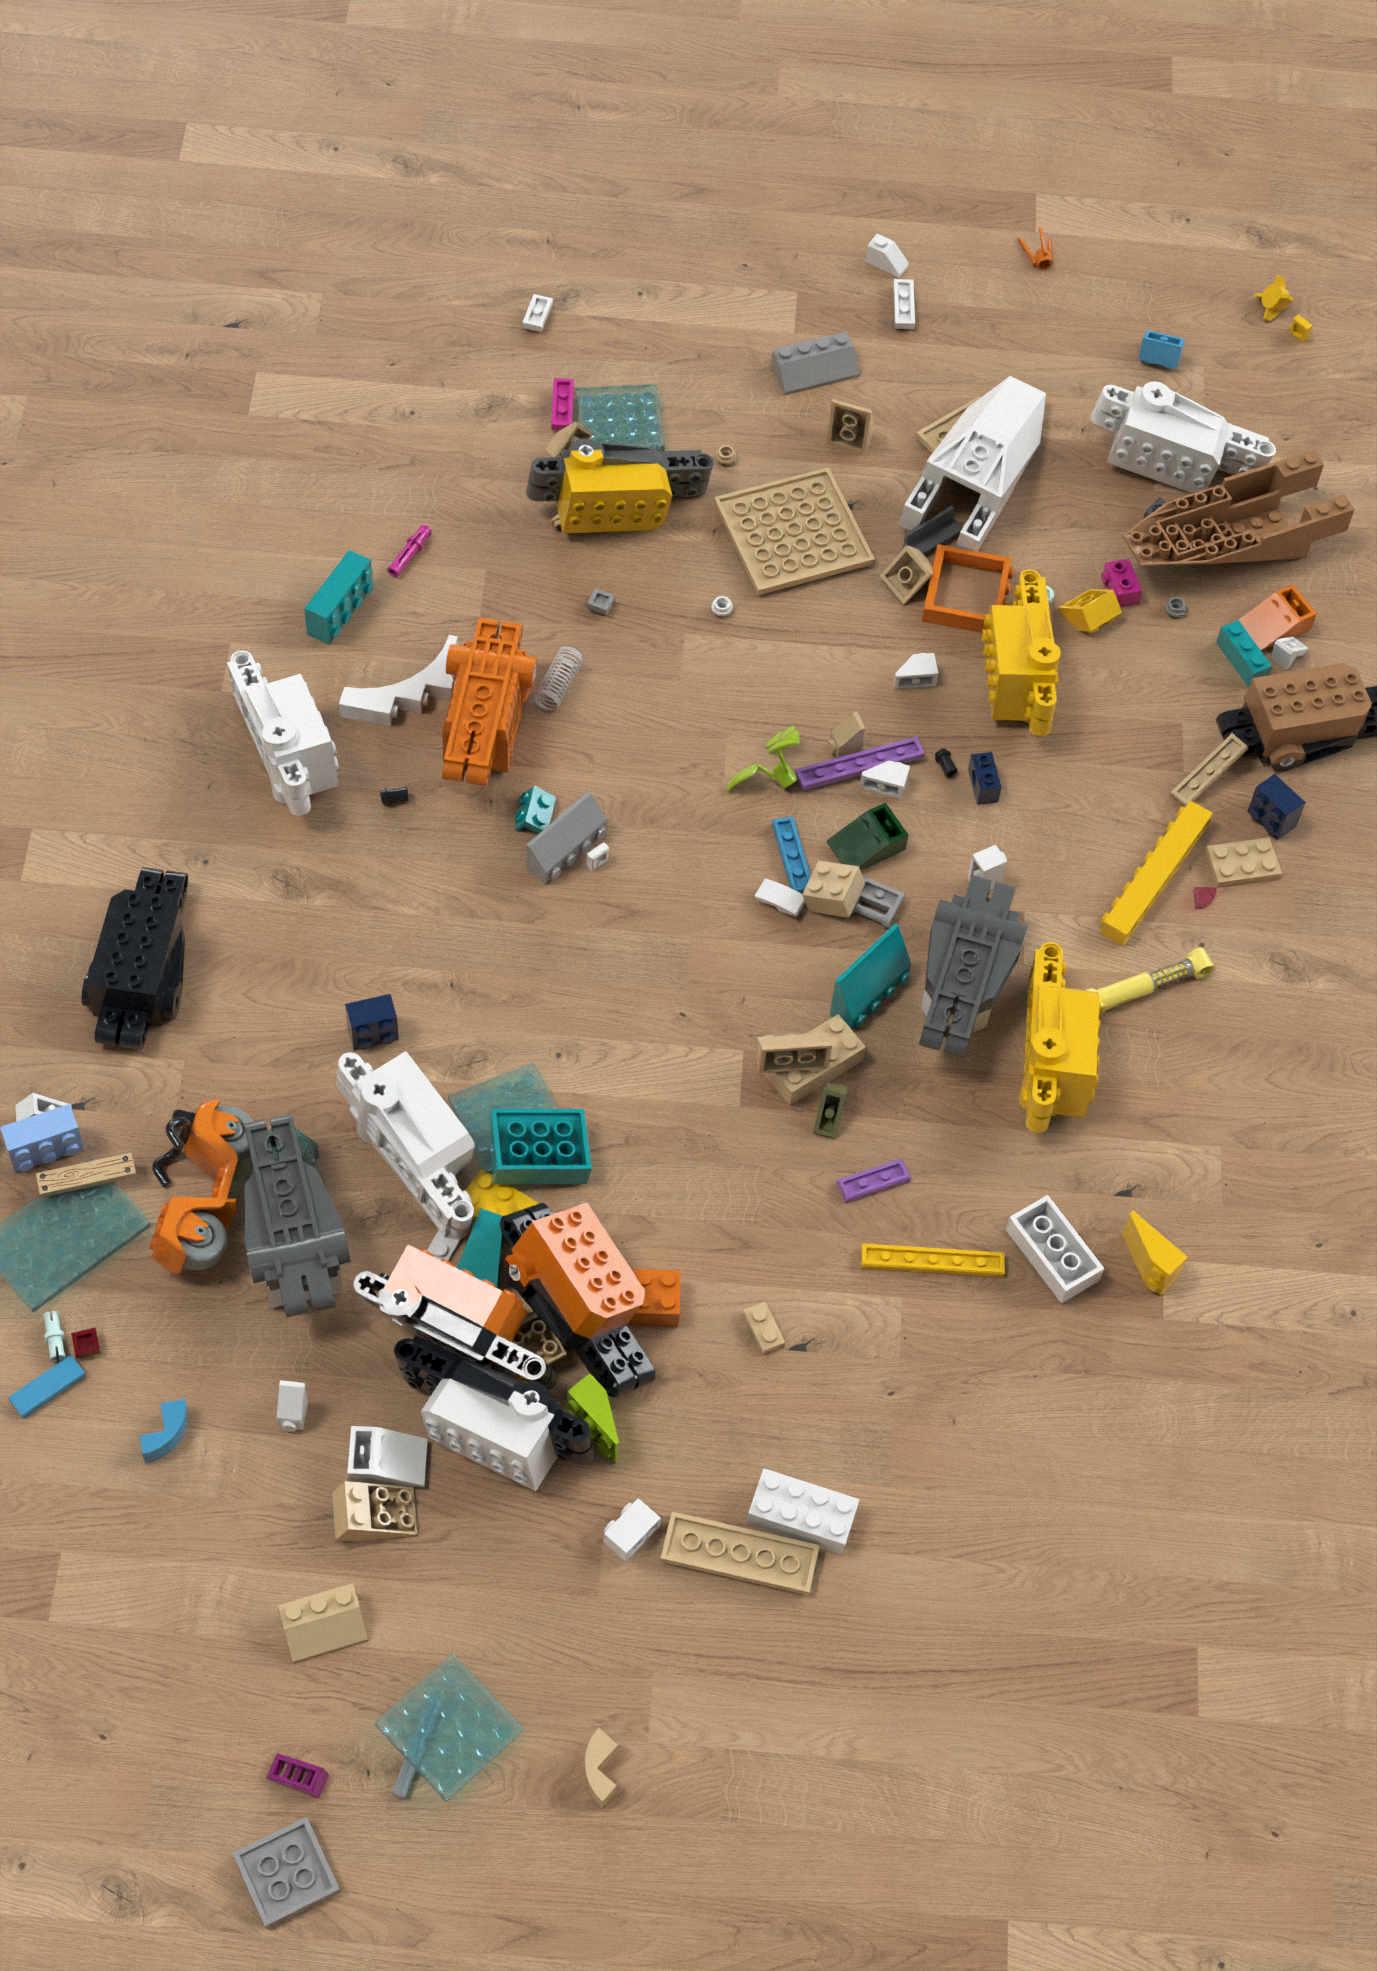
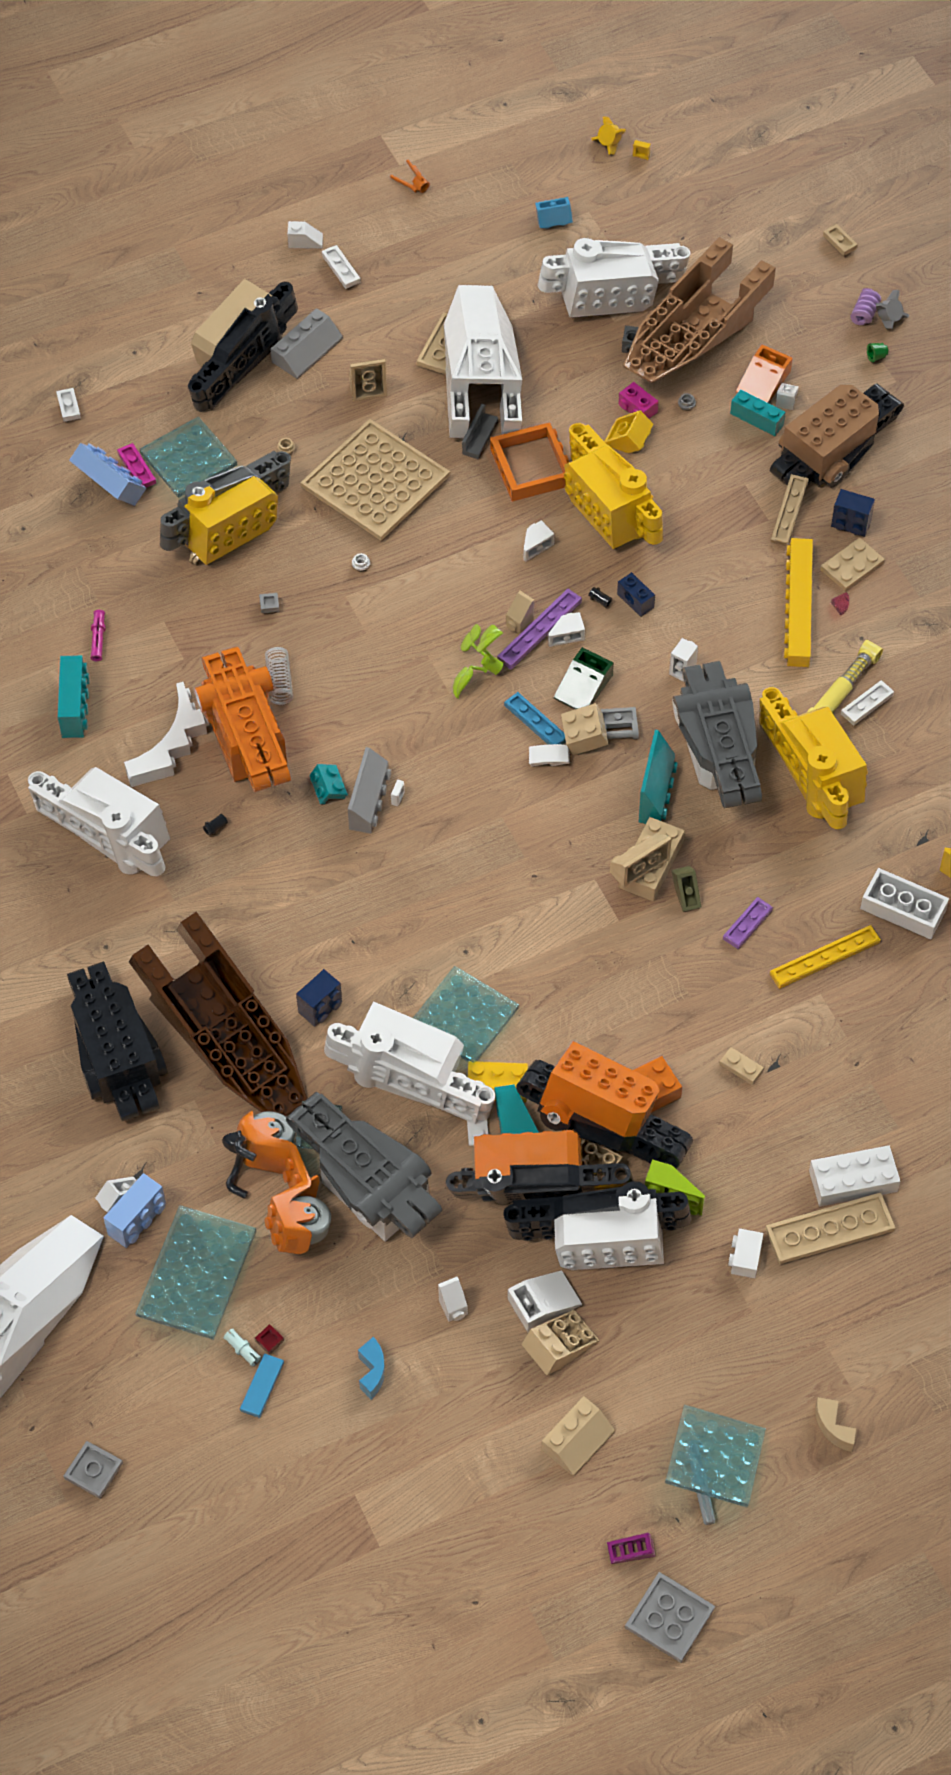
camera: 25 degrees left, 0 degrees up
(85, 1175) = (185, 1219): tan tile -> none
(256, 999) = (224, 1021): none -> reddish brown piece
(525, 396) = (107, 473): none -> light blue brick
(539, 1146) = (503, 1022): teal slope -> none
(565, 438) = (165, 493): tan slope -> none
(742, 324) = (238, 339): none -> black piece
(907, 573) = (481, 471): tan slope -> none
(1160, 1015) = (867, 702): none -> white plate

